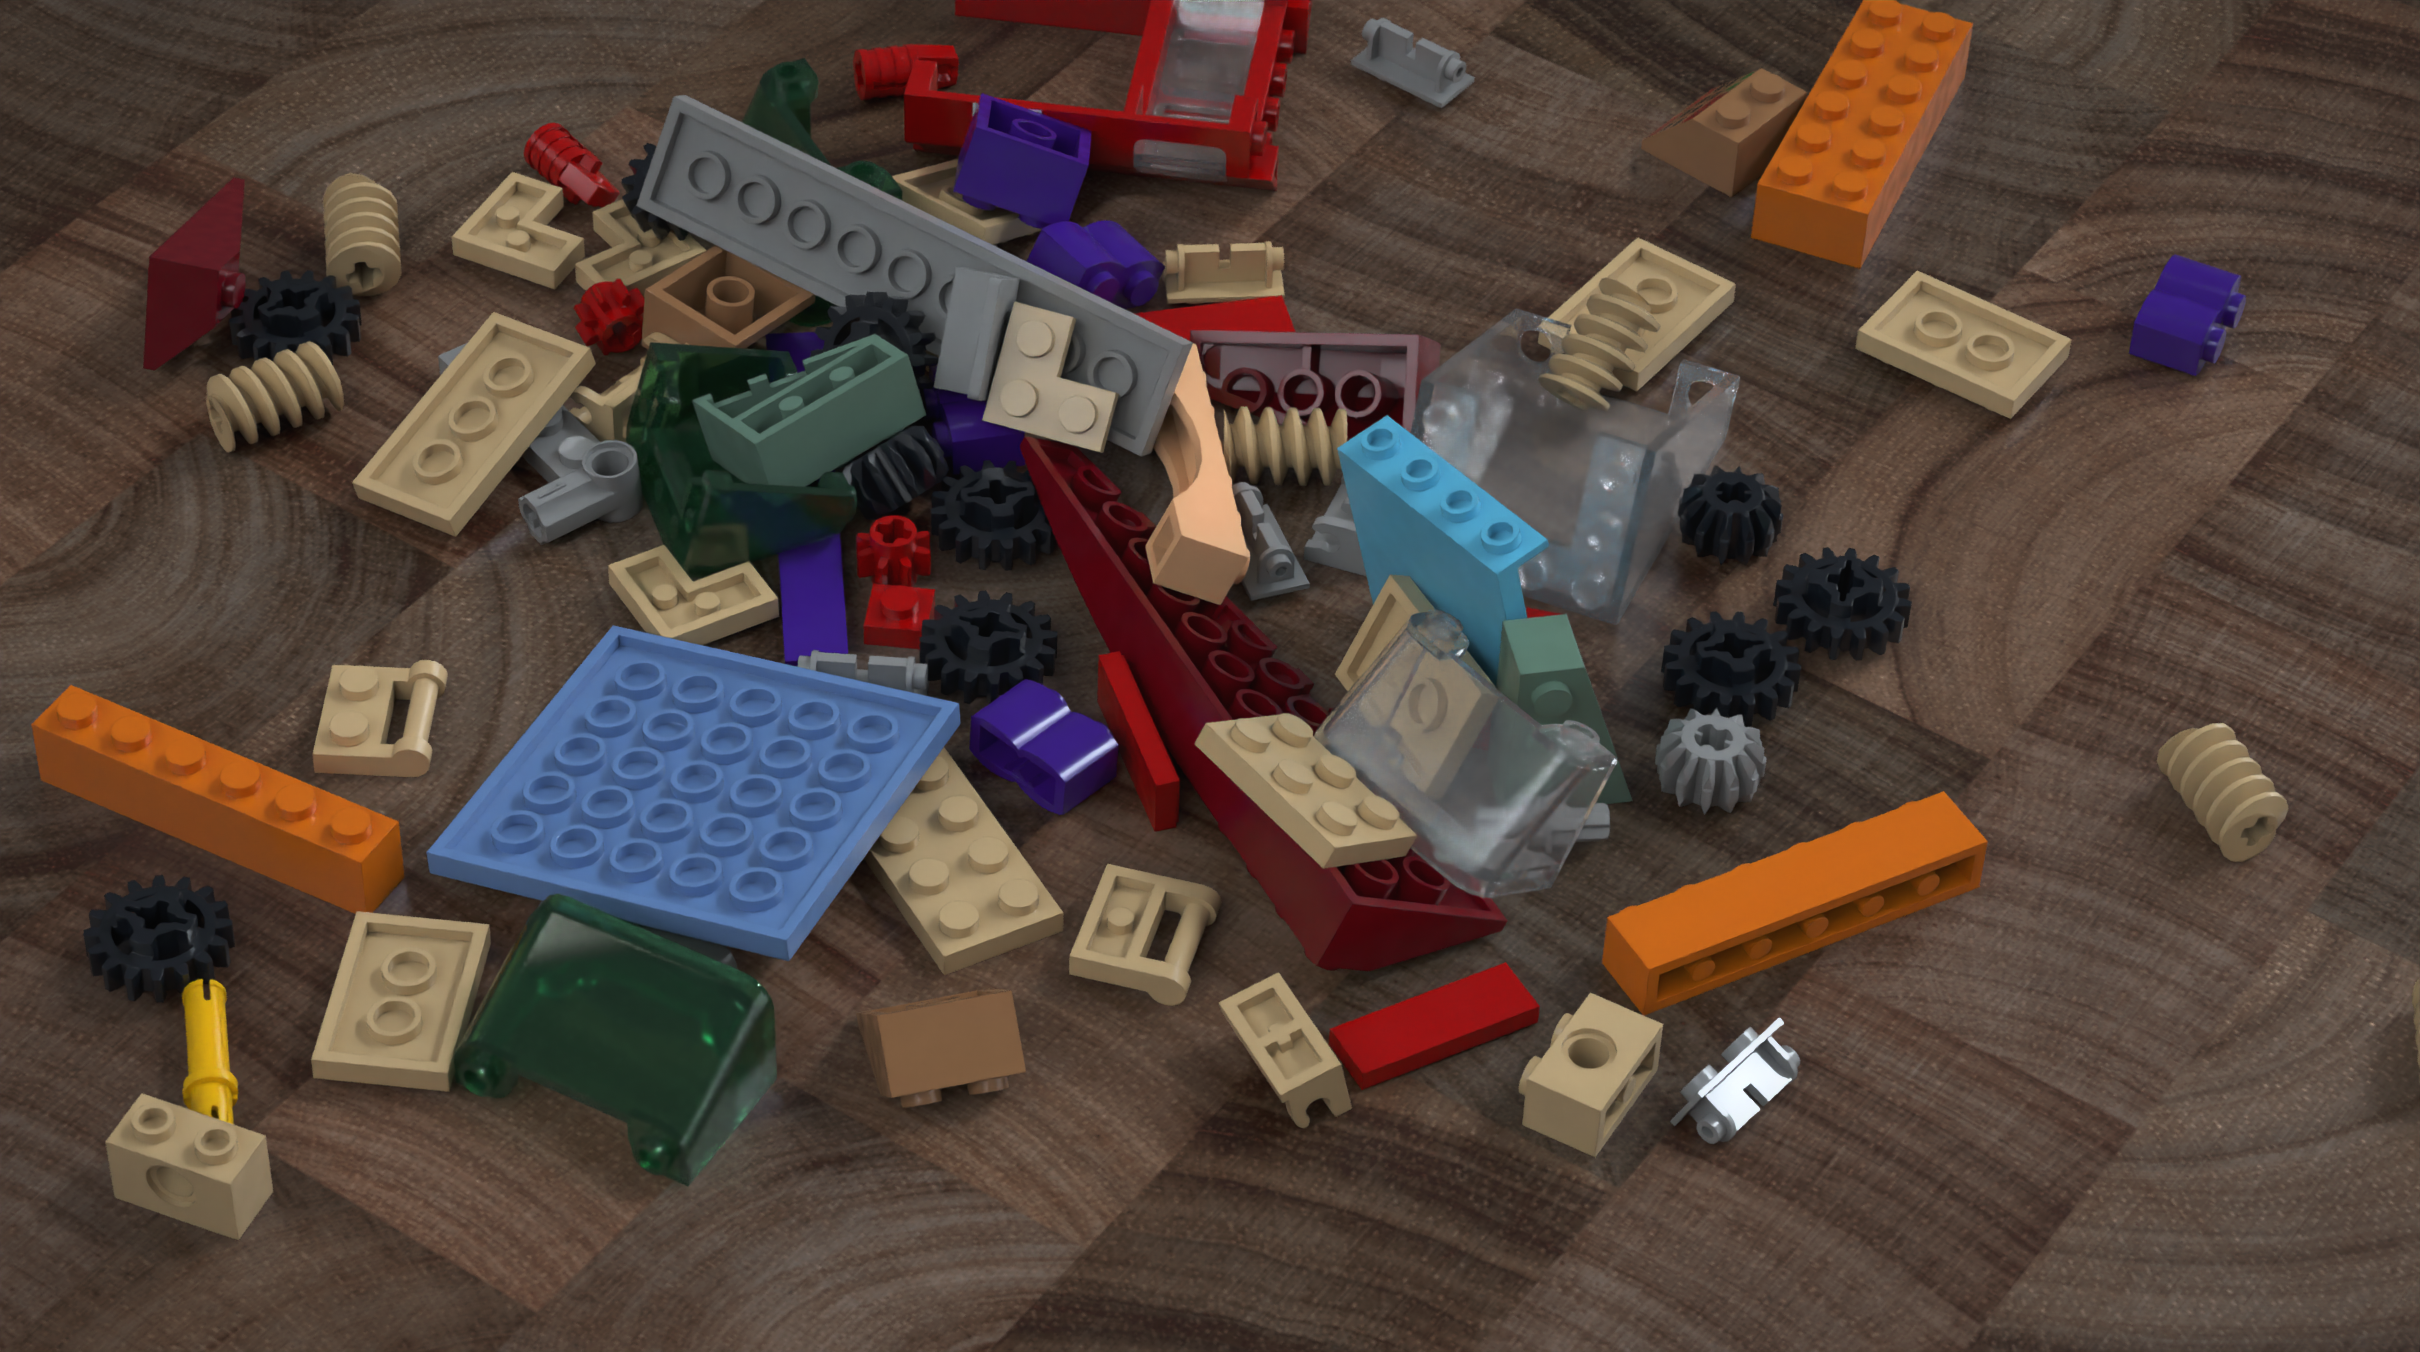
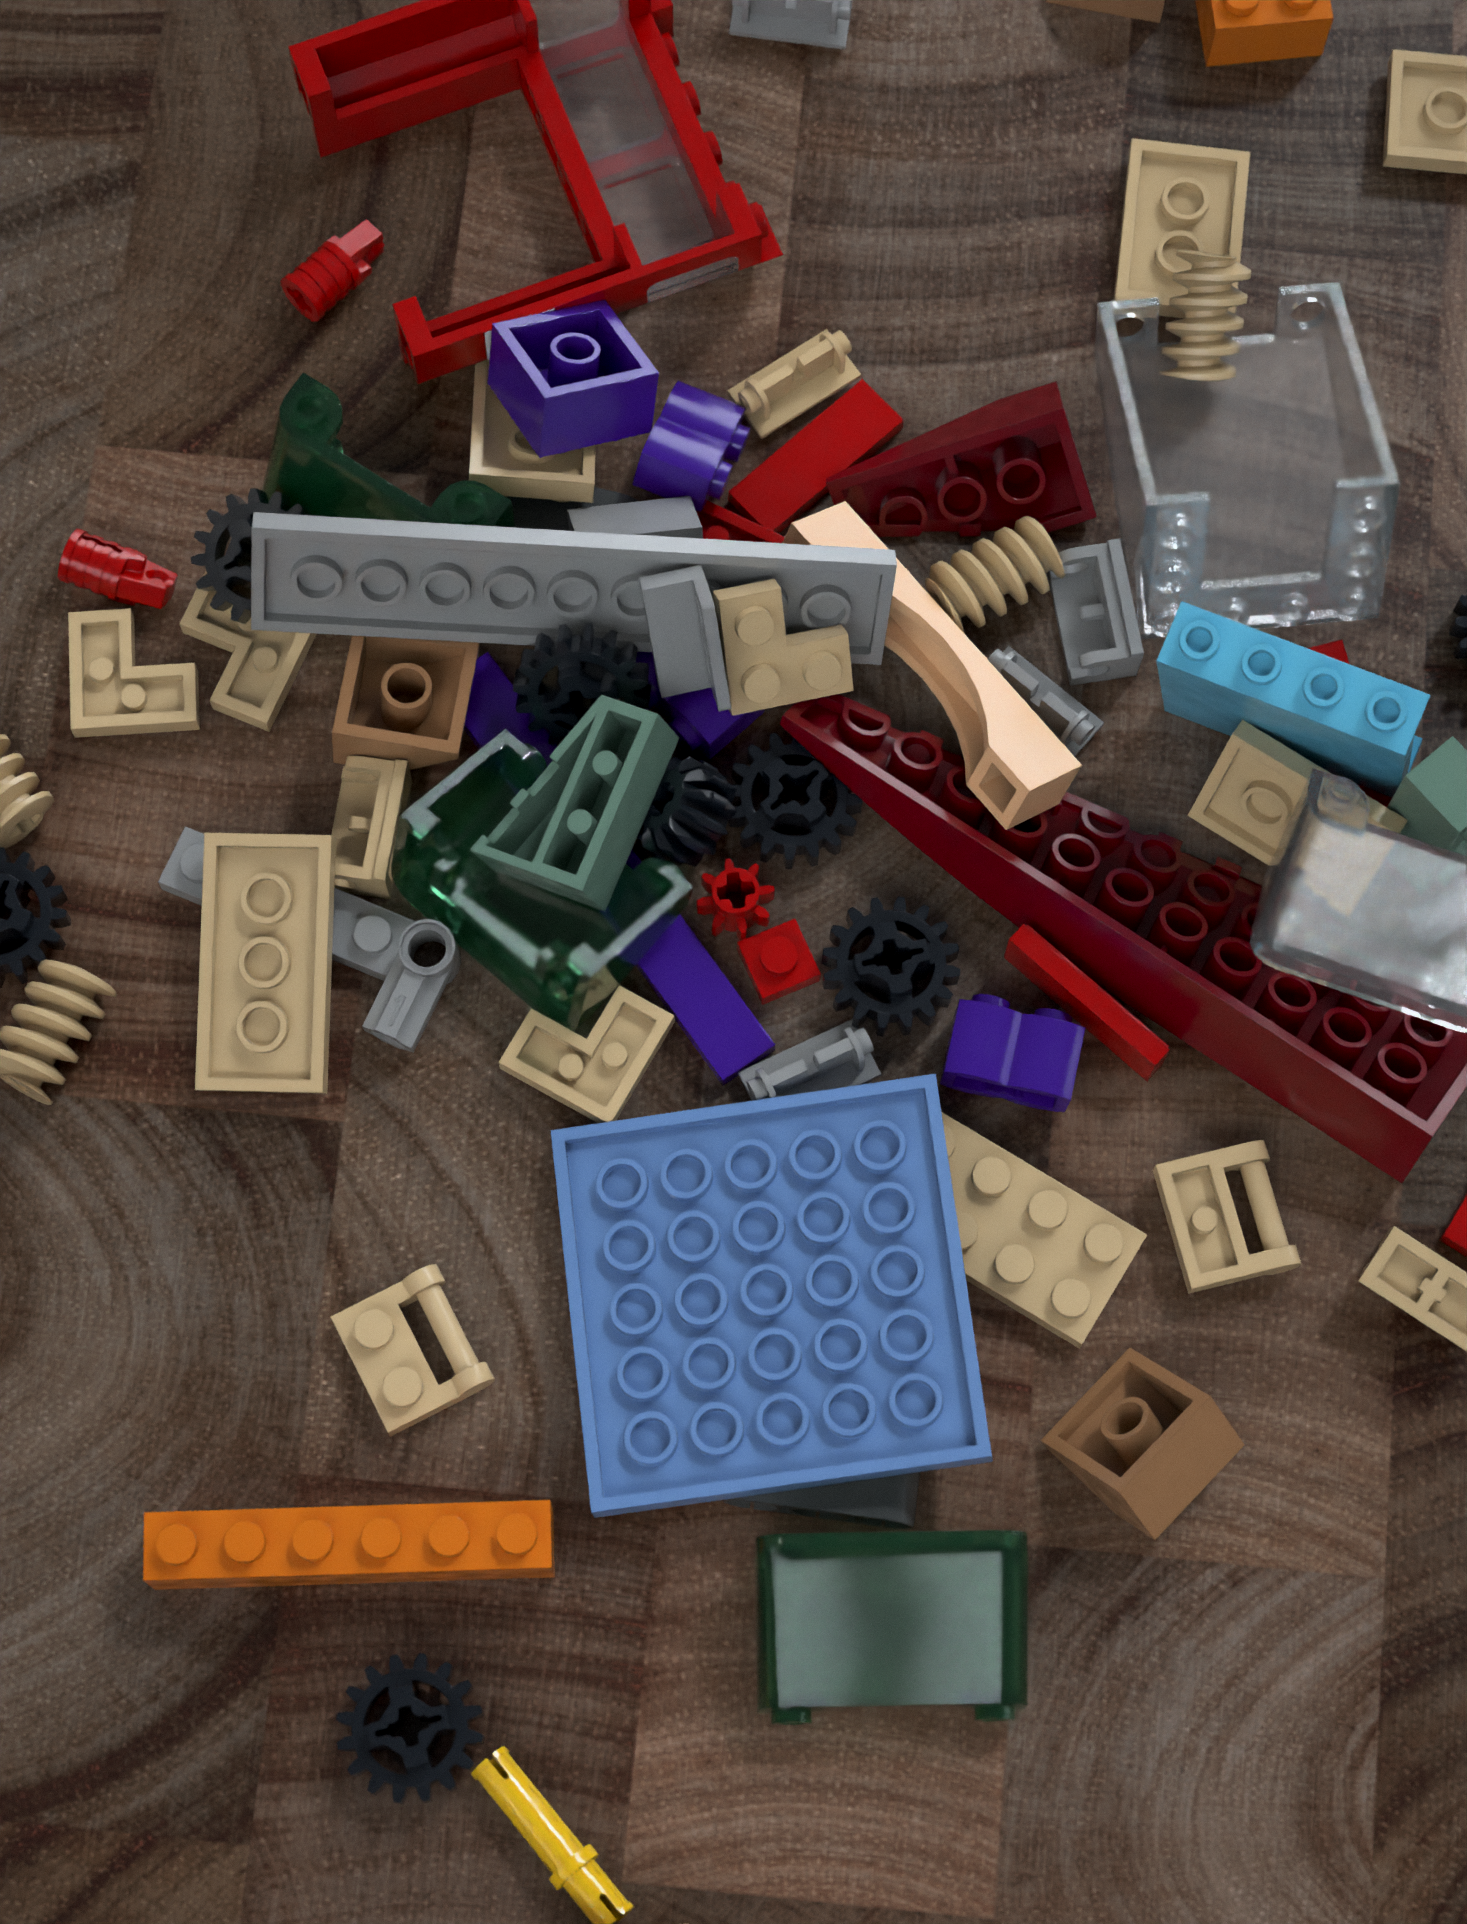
camera: 30 degrees left, 30 degrees up
(401, 1001) = (664, 1667): tan plate -> none
(611, 316) = (290, 749): red gear -> none
(1306, 789) = (1308, 1022): tan plate -> none
(1730, 515) = (1434, 439): black gear -> none

